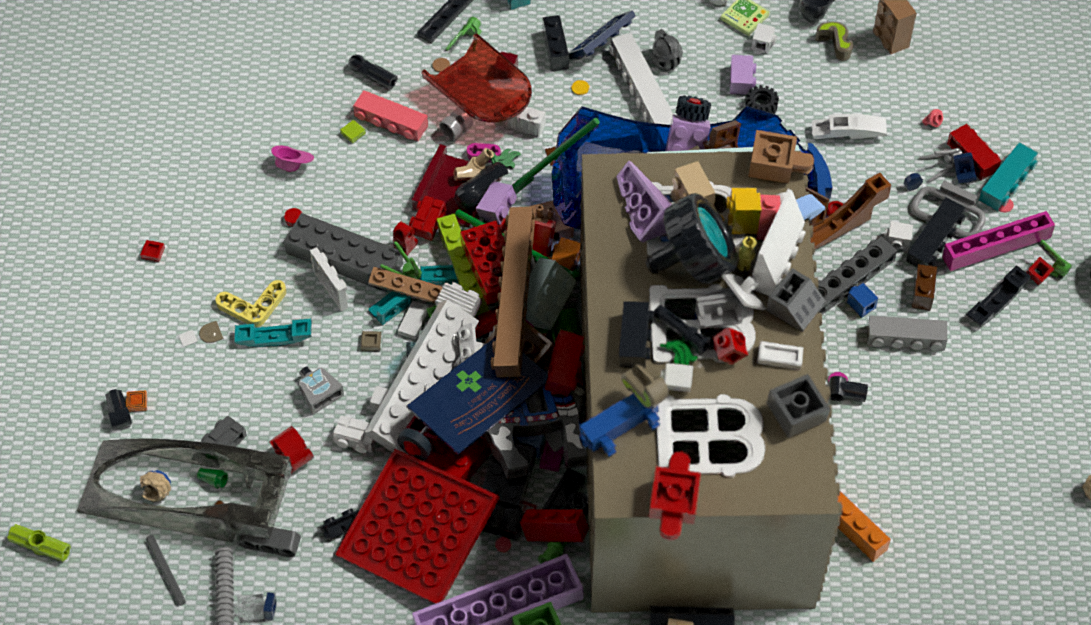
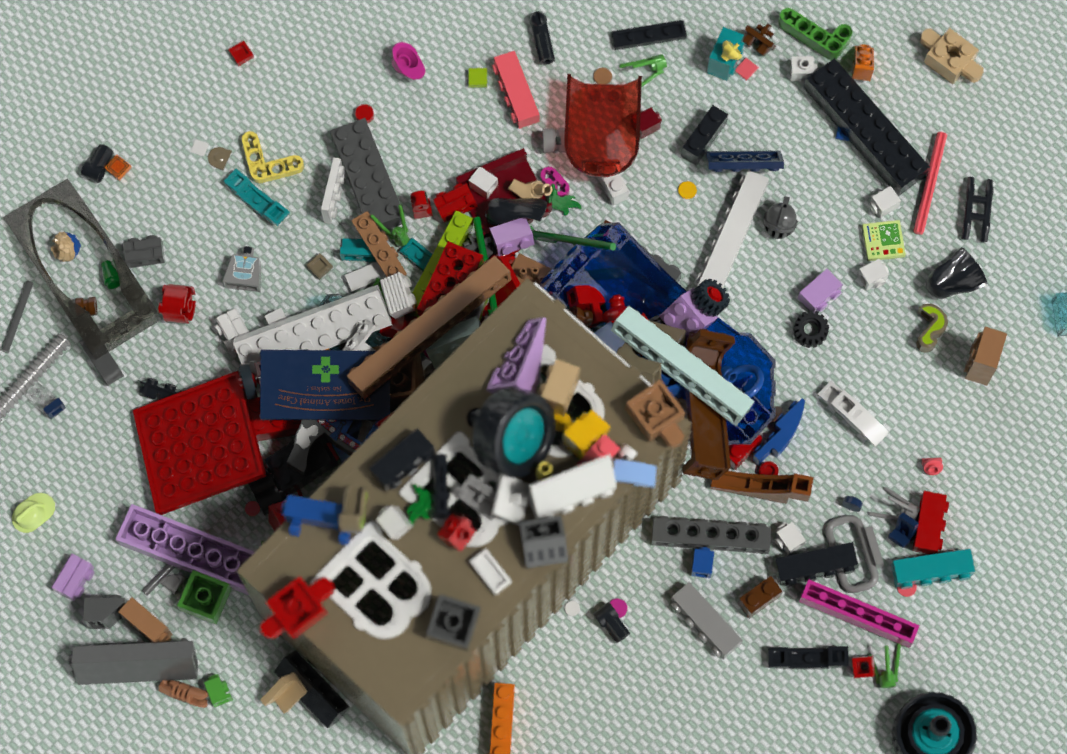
camera: 45 degrees right, 15 degrees up
(435, 187) = (483, 182): none -> white panel

